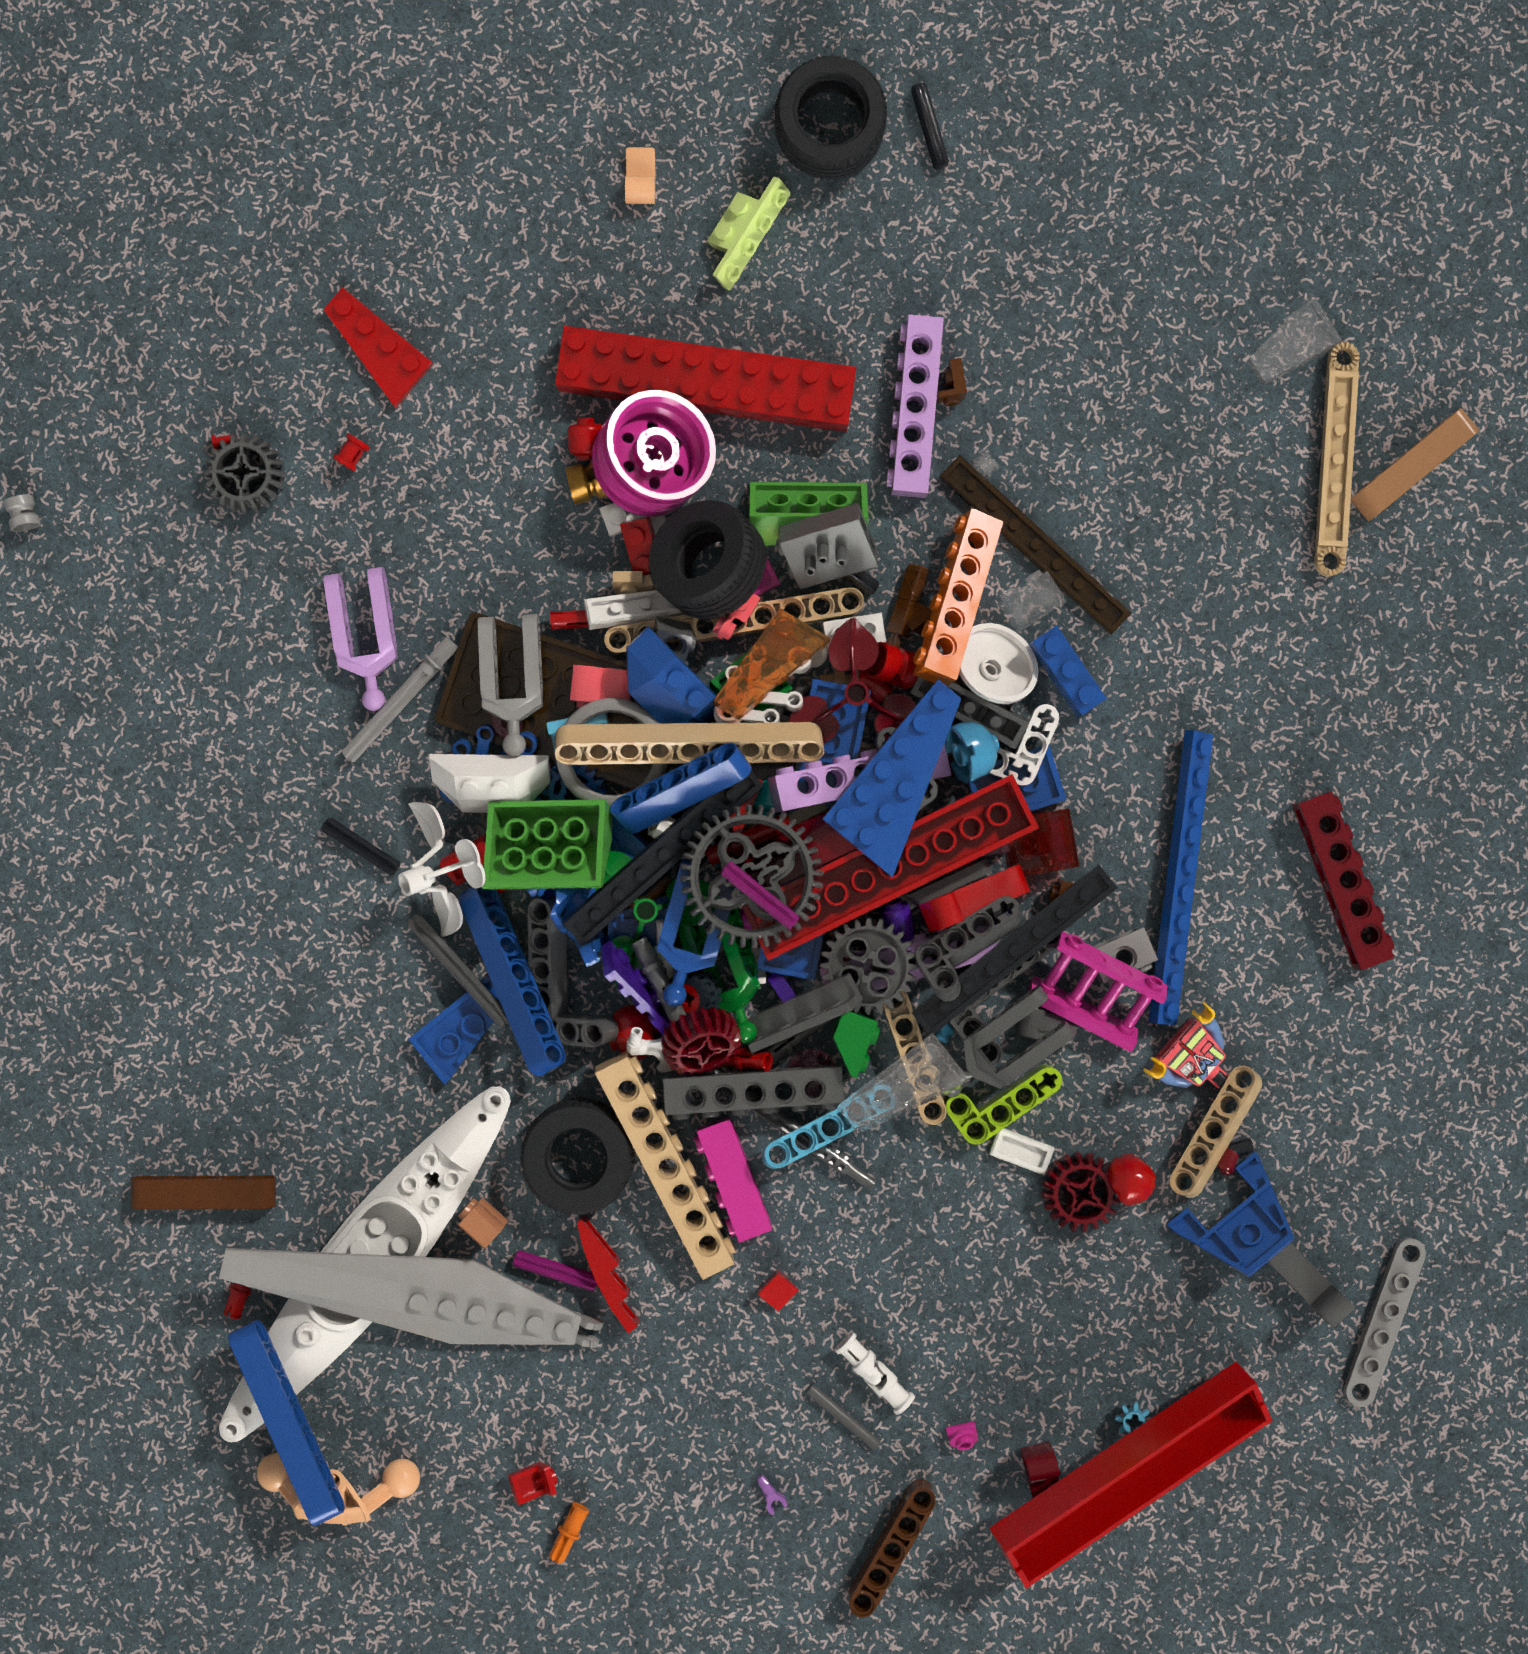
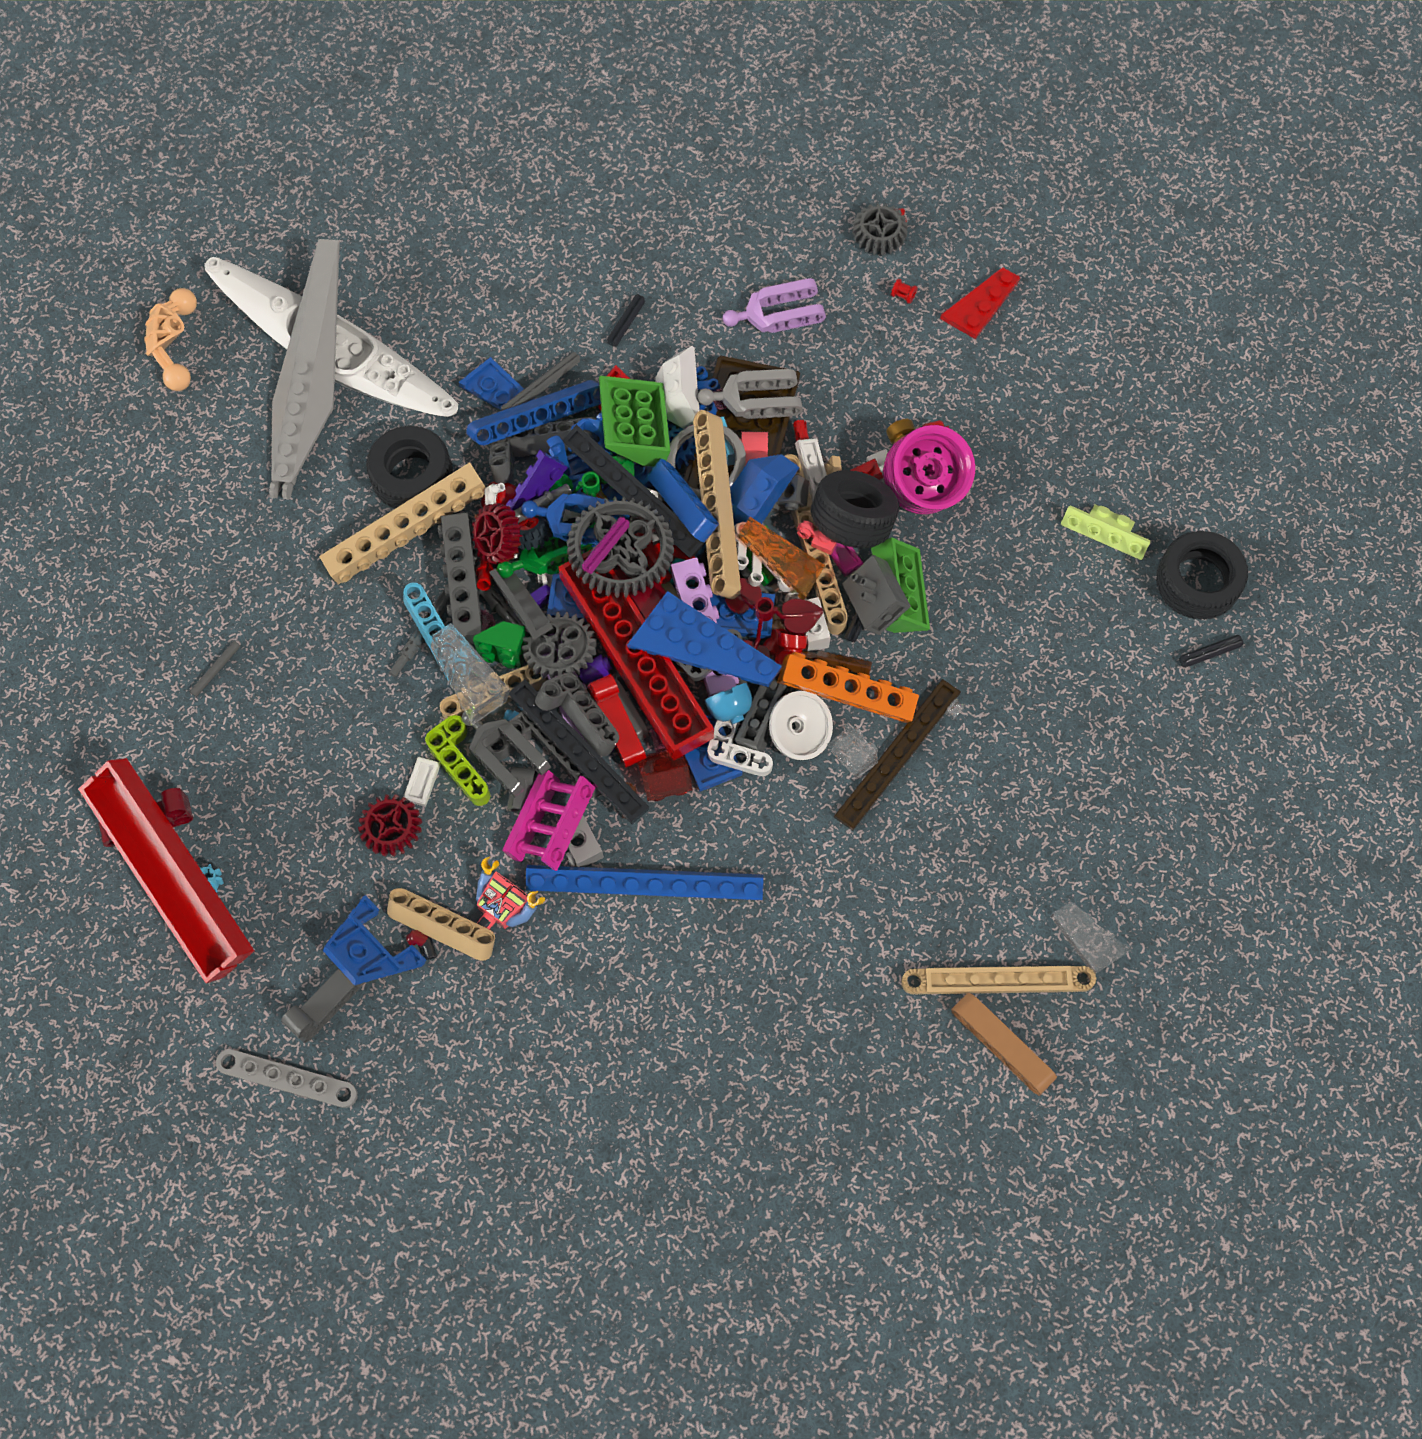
camera: 85 degrees right, 20 degrees down
(21, 513) = (835, 105): light grey wheel -> none
(203, 1192) = (378, 244): reddish brown beam -> none
(236, 1300) = (300, 269): red pin -> none
(286, 1422) = (217, 291): blue beam -> none
(400, 699) = (756, 350): light grey axle -> none
(421, 878) = (604, 343): white plant -> none
(482, 1221) = (360, 409): nougat brick -> none
(532, 1482) = (170, 460): red bracket -> none
(554, 1270) = (325, 465): magenta axle -> none
(568, 1532) = (133, 488): orange axle -> none
(602, 1264) = (331, 492): red slope -> none
(640, 175) = (1129, 459): light nougat panel -> none
(708, 377) = (991, 512): red brick -> none
(733, 1178) = (392, 576): dark pink brick -> none
(770, 1493) = (157, 623): medium lavender piece -> none
(777, 1290) = (311, 614): red slope -> none
(872, 1371) = (251, 683): white piece -> none
(891, 1561) = (106, 701): reddish brown beam -> none
(929, 332) = (1027, 663): lavender brick -> none
(955, 379) = (1015, 683): reddish brown bracket -> none
(962, 1435) = (198, 754): dark pink plate -> none
(1067, 671) = (800, 780): blue brick -> none
(1131, 1179) = (400, 860): red hair -> none
(1350, 926) = (704, 979): dark red brick -> none

